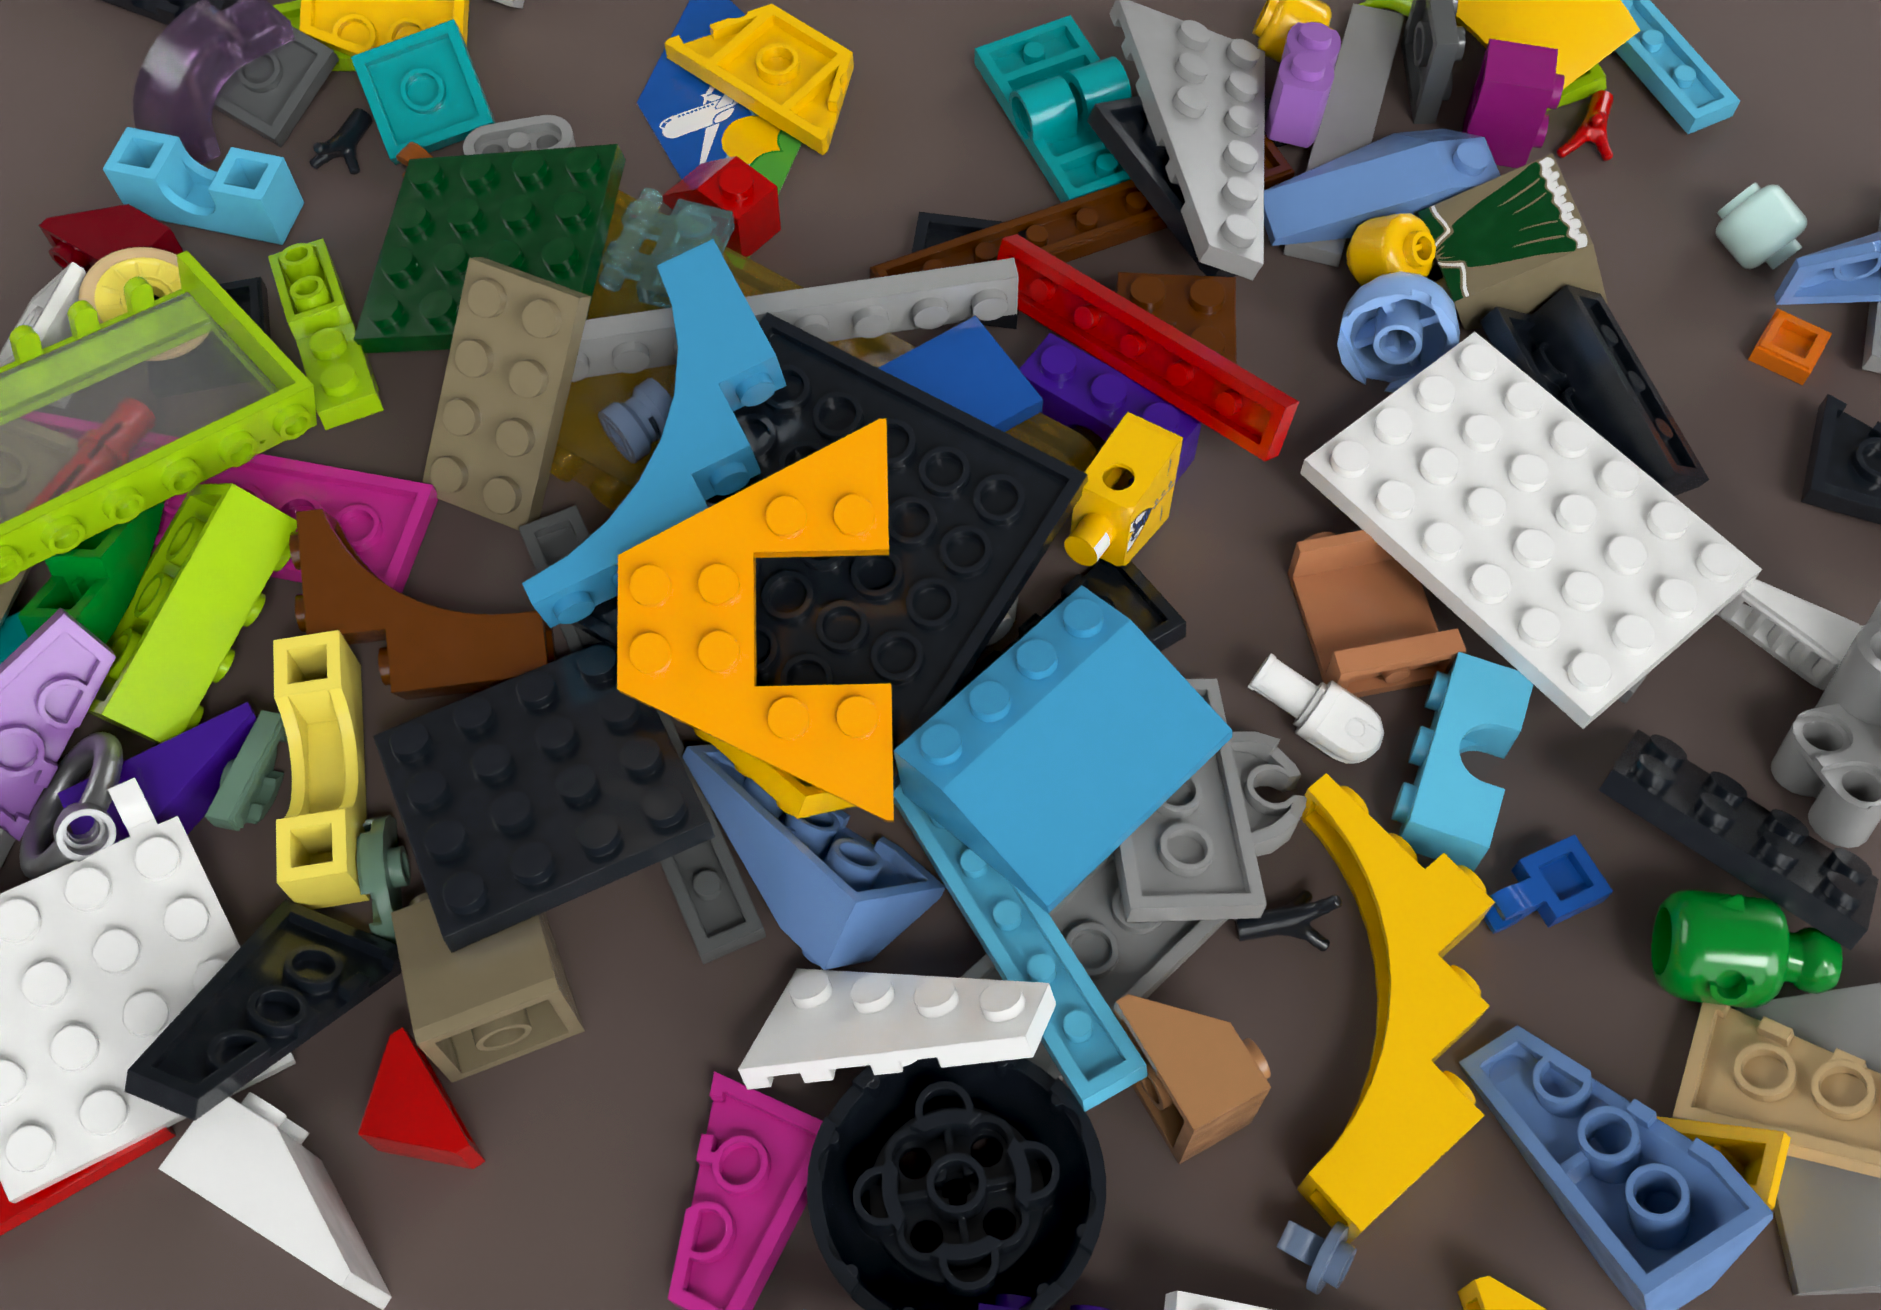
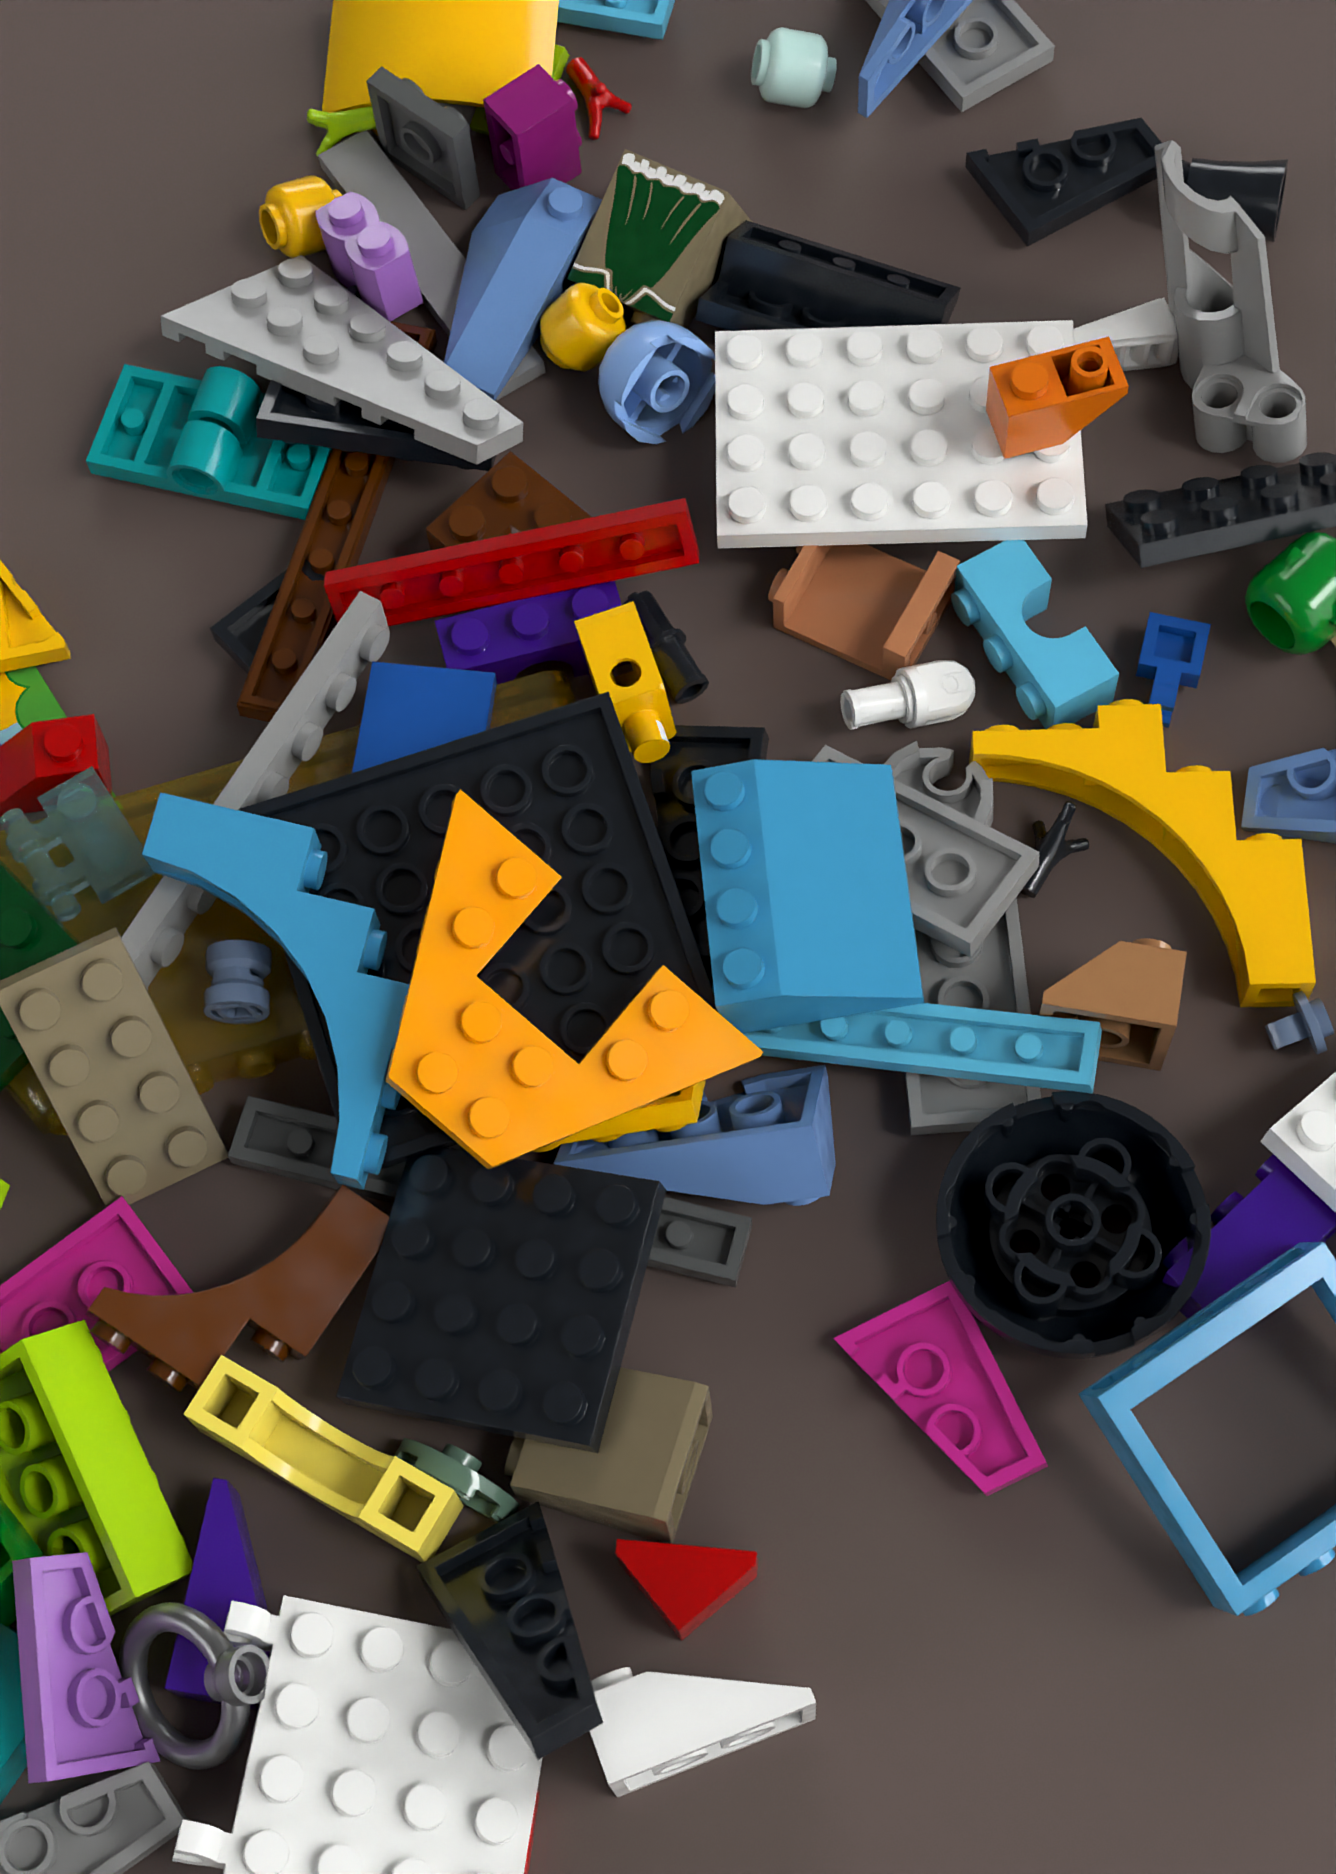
camera: 45 degrees left, 5 degrees up
(249, 781) = (276, 1527): sand green plate -> none
(892, 1021) = (900, 1188): white wing -> none
(1191, 508) = (668, 649): none -> black axle
(1668, 592) = (1052, 395): none -> orange slope
(1790, 346) = (900, 139): orange tile -> none

